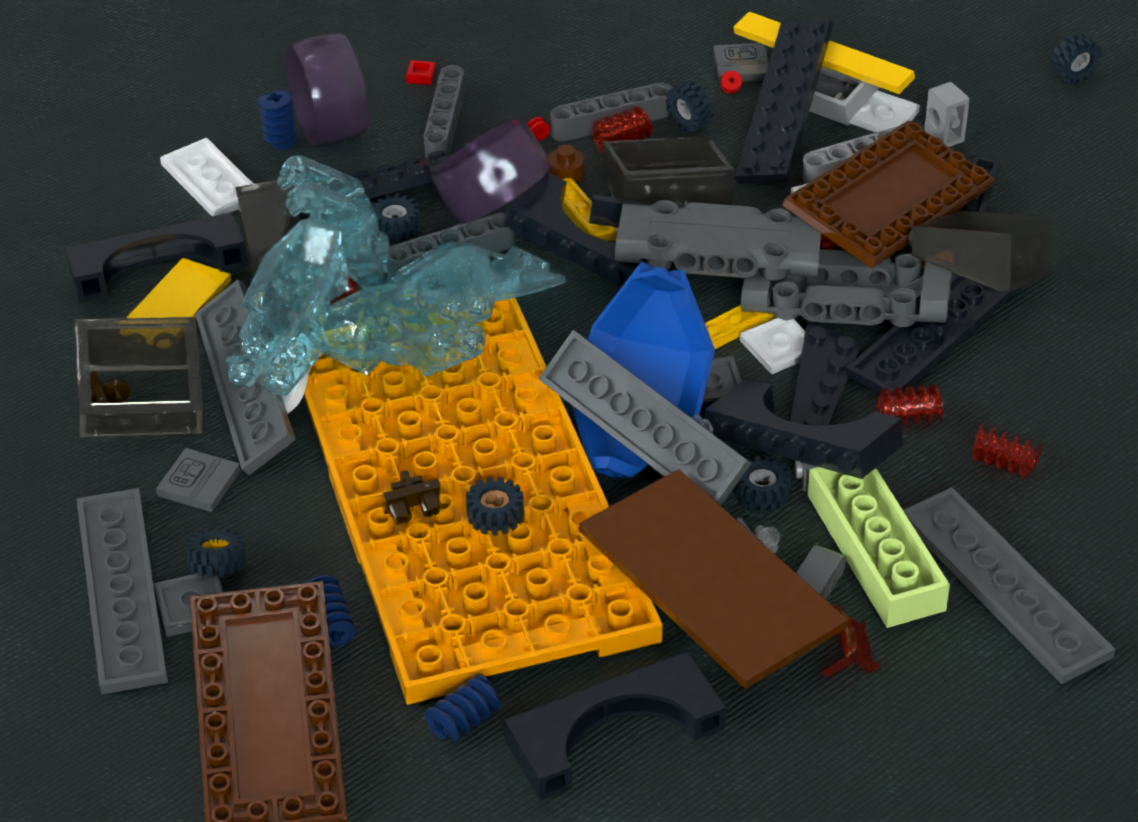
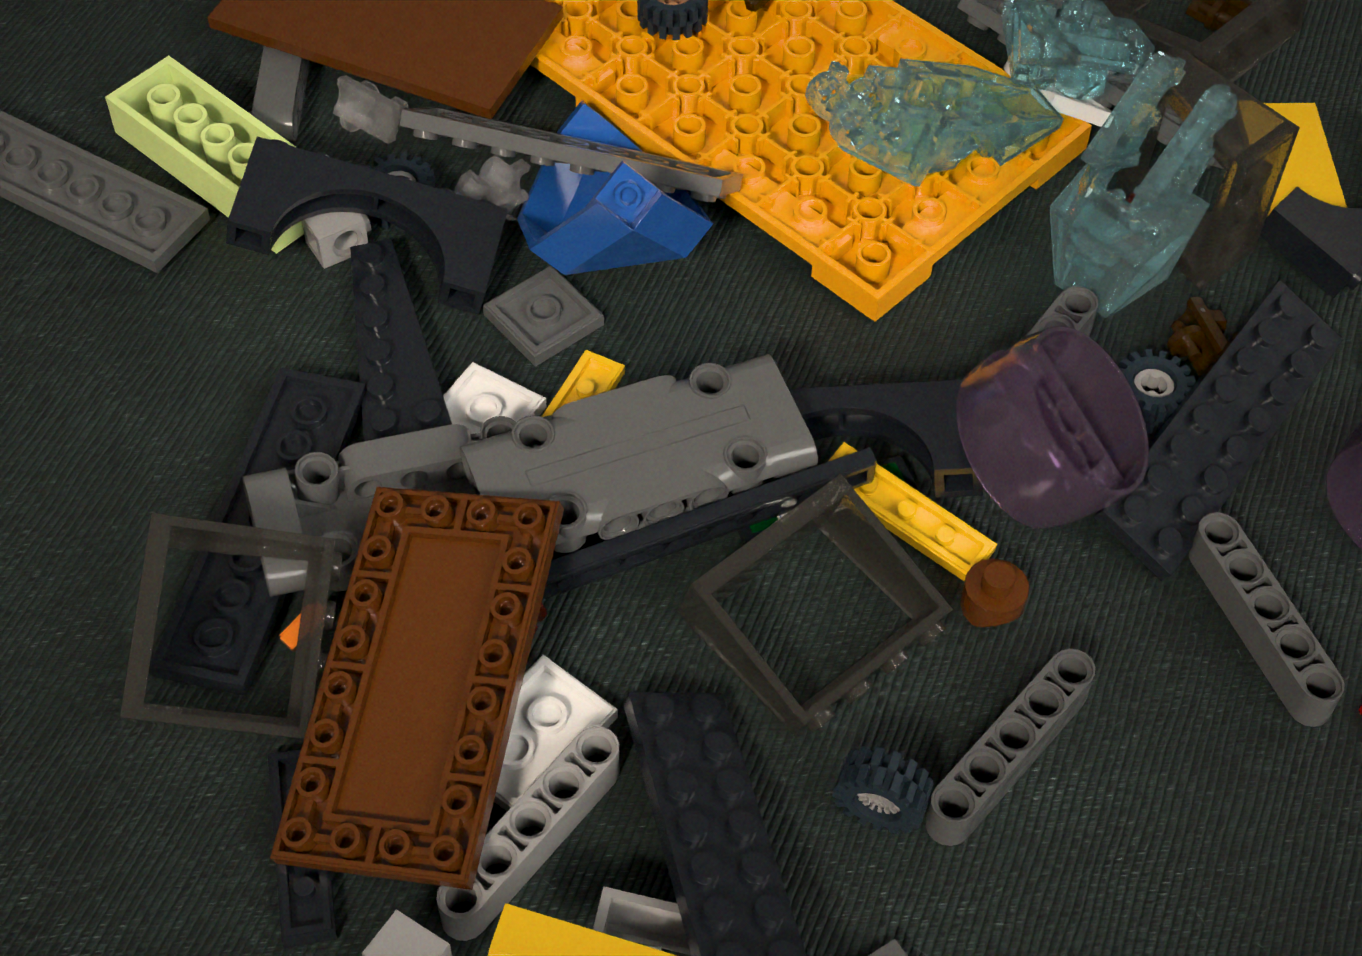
camera: 150 degrees right, 10 degrees up
(467, 263) = (914, 296): clear light blue connector -> none
(539, 128) = (1102, 656): red piece -> none
(622, 126) = (961, 701): clear red piece -> none
(727, 78) = (864, 931): red piece -> none
(855, 648) = (206, 51): clear red piece -> none
(911, 403) = (252, 353): clear red piece -> none
(1005, 452) = (94, 338): clear red piece -> none

